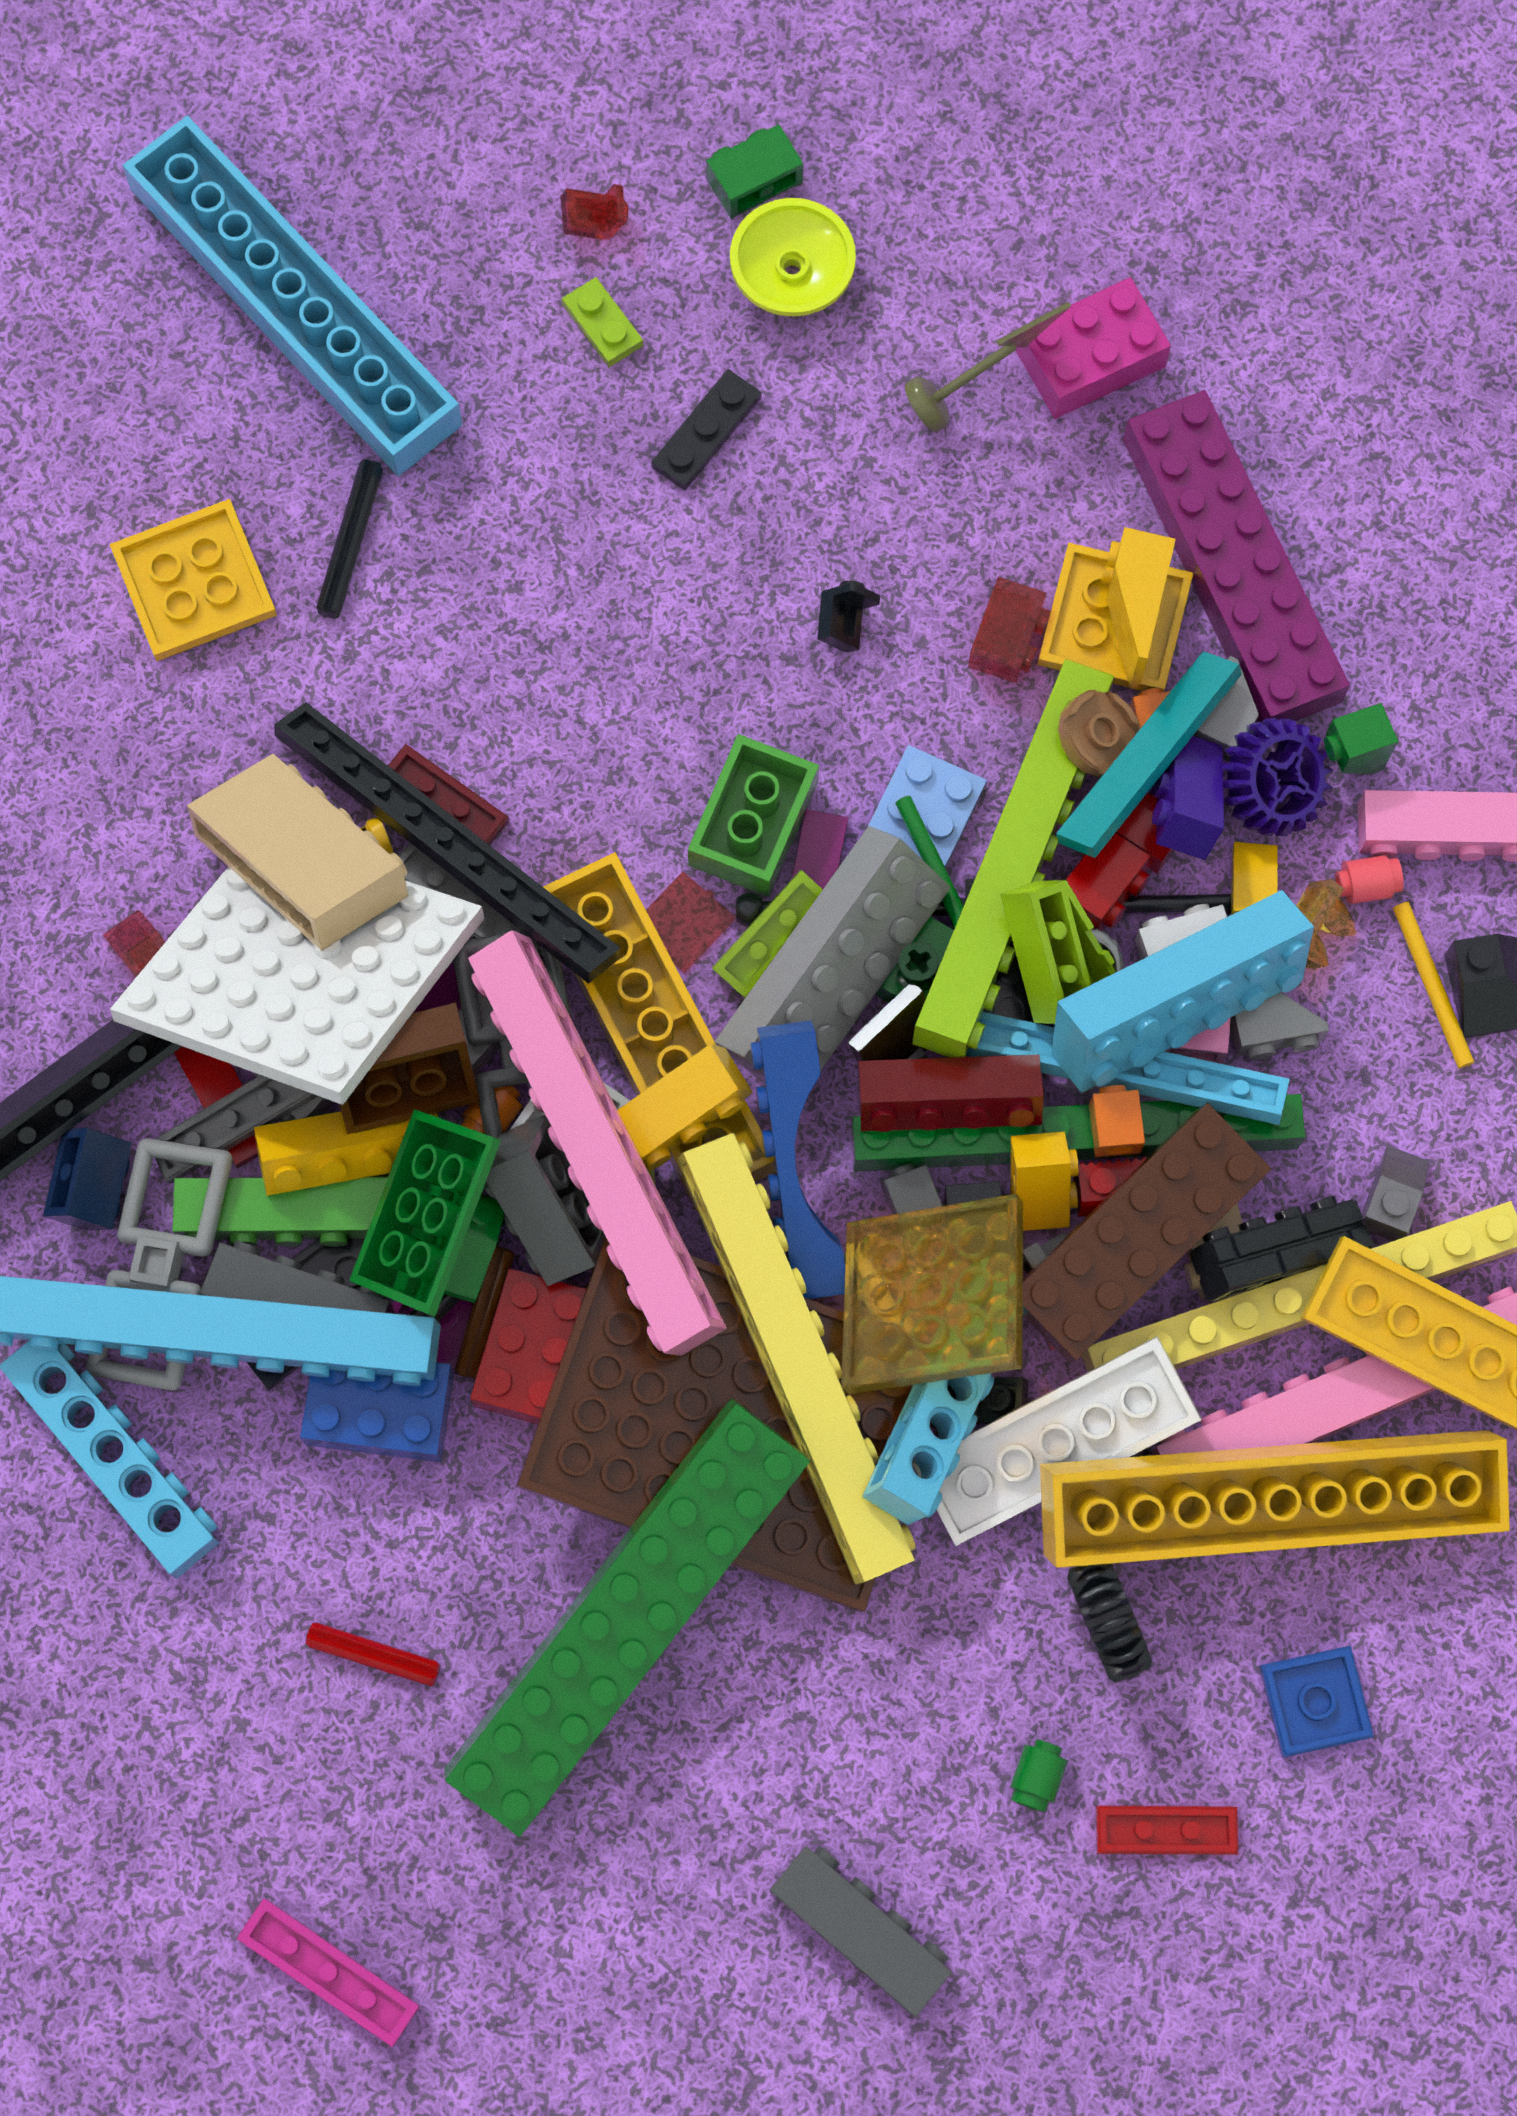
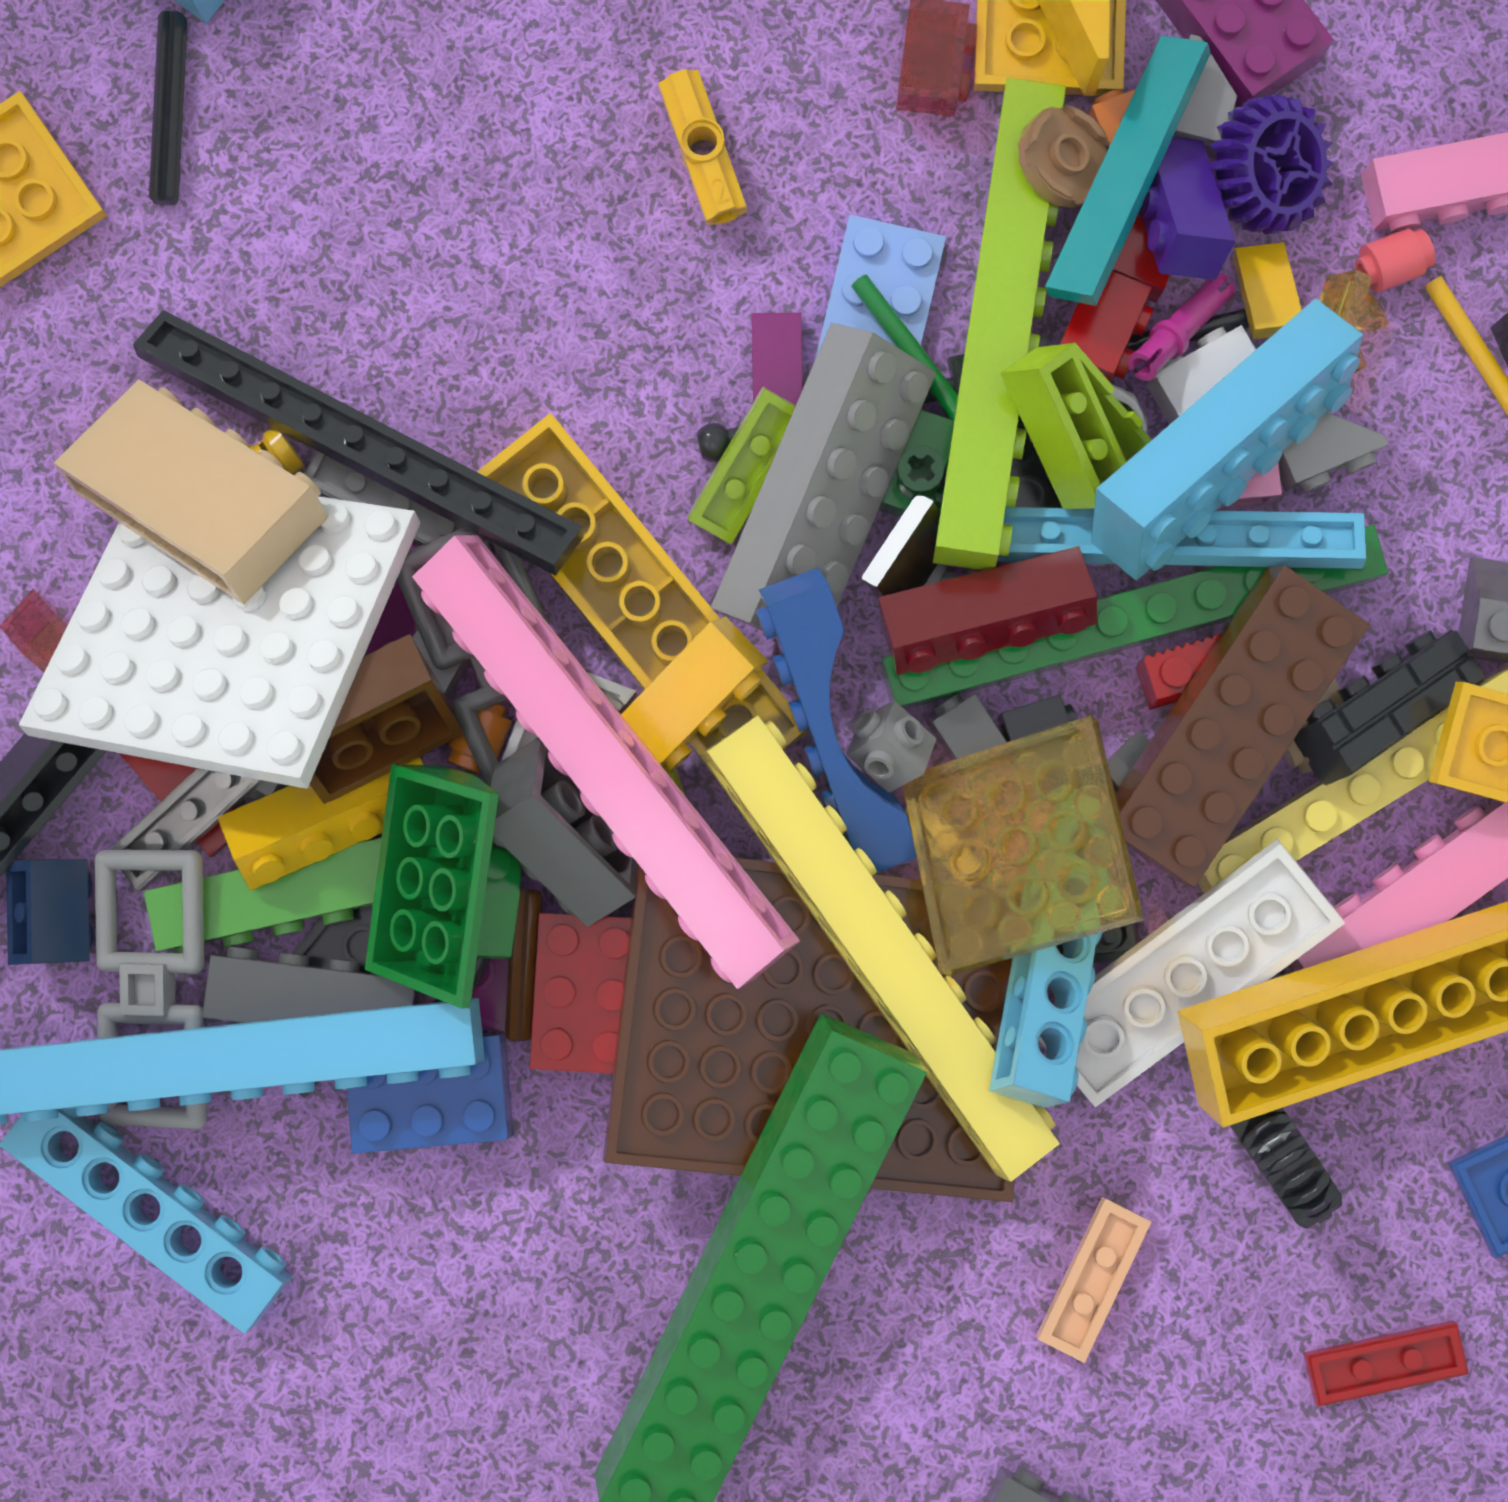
camera: 10 degrees left, 10 degrees up
(372, 1654) = (487, 1363): red axle -> none
(450, 794) = (349, 383): dark red tile -> none
(688, 920) = (647, 469): clear red piece -> none
(753, 815) = (695, 333): bright green brick -> none
(796, 686) = (695, 121): none -> yellow piece
(842, 614) = (743, 78): black bracket -> none
(842, 1191) = (890, 746): none -> light grey brick
(921, 1696) = (1093, 1279): none -> light nougat plate
(1038, 1775) = (1238, 1339): green brick -> none
(1042, 1179) = (1109, 681): yellow brick -> none
(1116, 1121) = (1181, 603): orange brick -> none
(1159, 901) = (1172, 336): none -> dark pink pin
(1361, 740) = (1361, 101): green slope -> none

